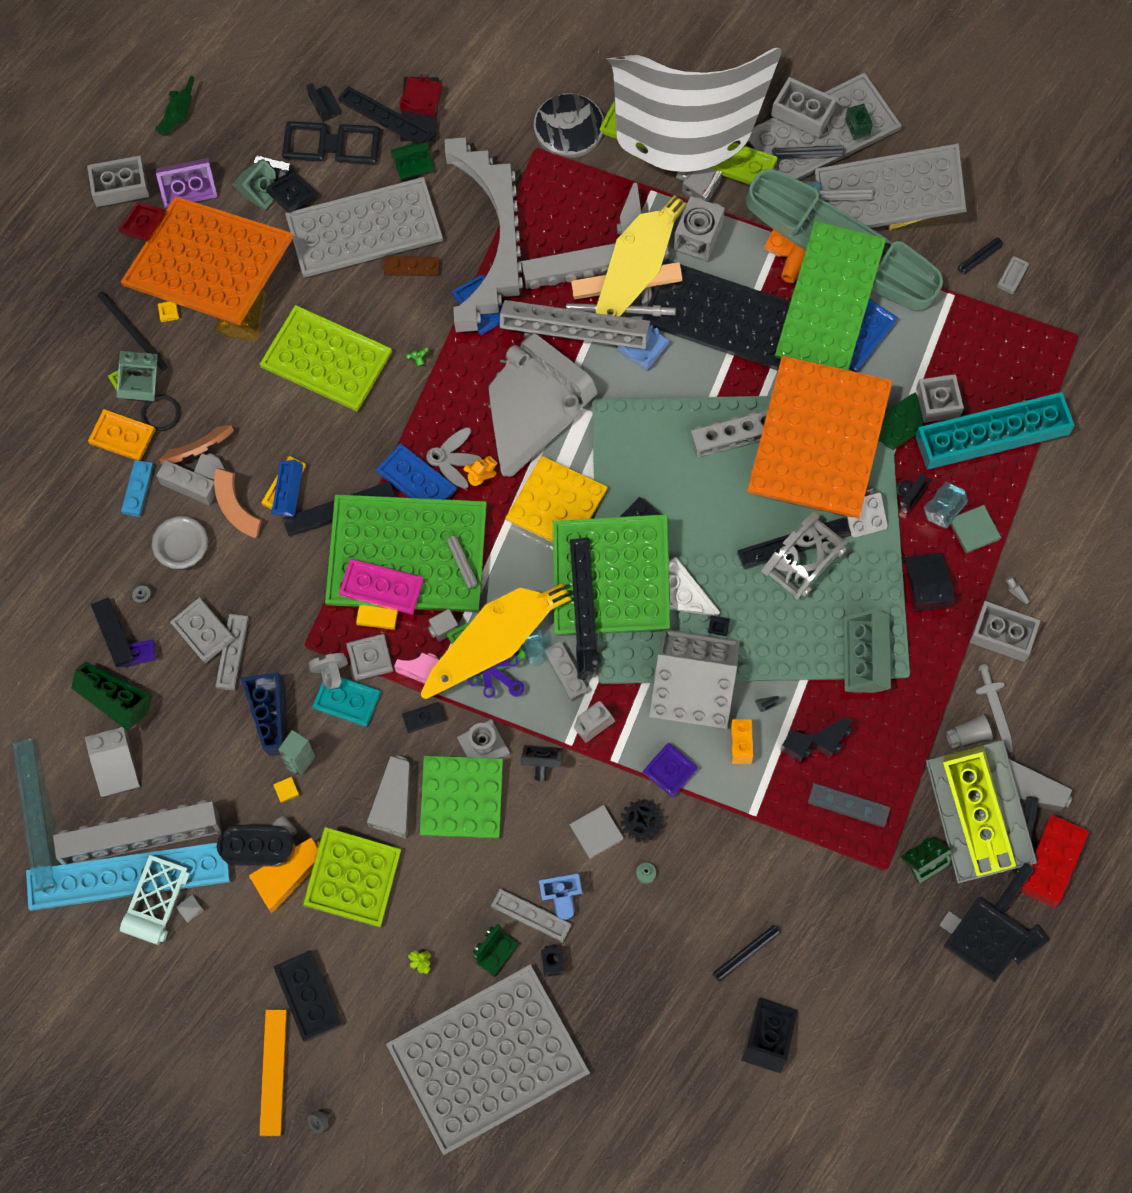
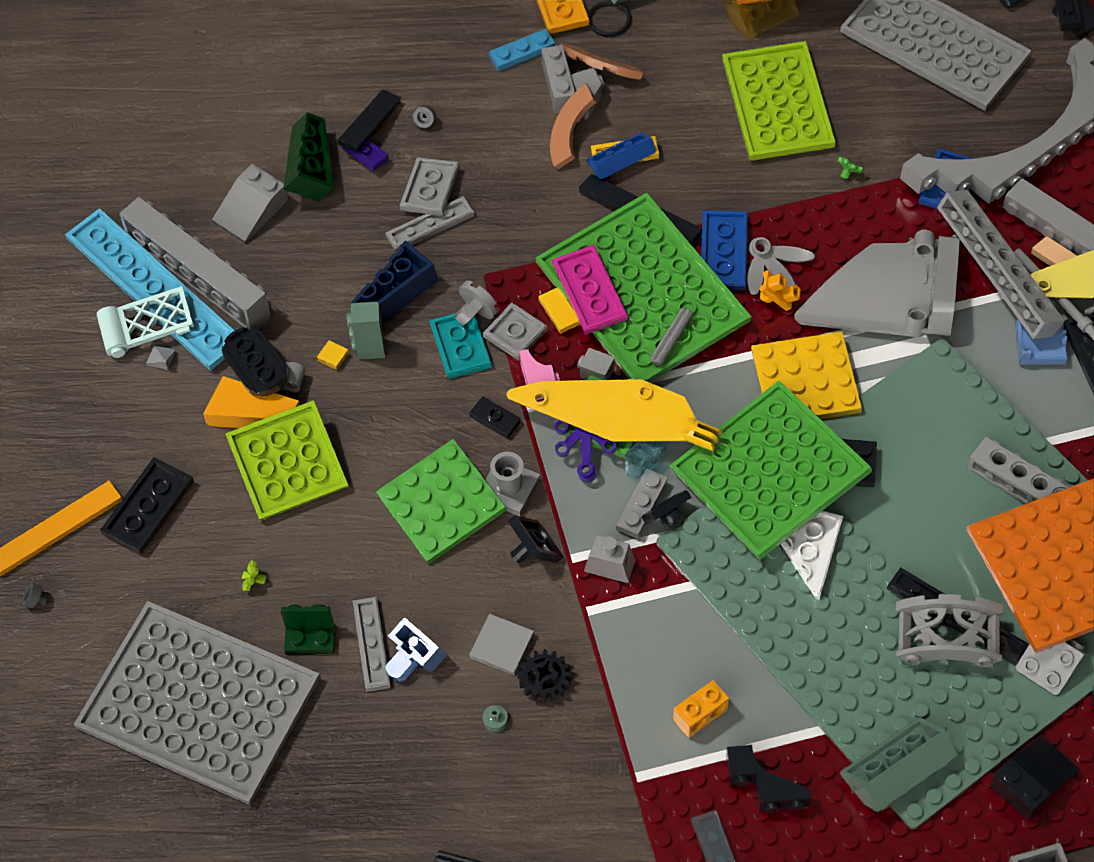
camera: 55 degrees right, 10 degrees down
(33, 815) = (154, 178): clear light blue tile -> none
(179, 542) = (496, 111): light grey piece -> none
(392, 800) = (393, 444): light grey slope -> none
(411, 266) = (935, 104): reddish brown plate -> none
(412, 160) = (1039, 31): dark green bracket -> none
(556, 969) = (333, 701): black brick -> none
(583, 594) = (726, 456): black tile -> none
(670, 770) = (618, 665): dark purple tile -> none
(694, 678) = (727, 614): light grey bracket -> none
(718, 625) = (805, 604): black slope -> none
(766, 703) = (763, 707): black slope -> none

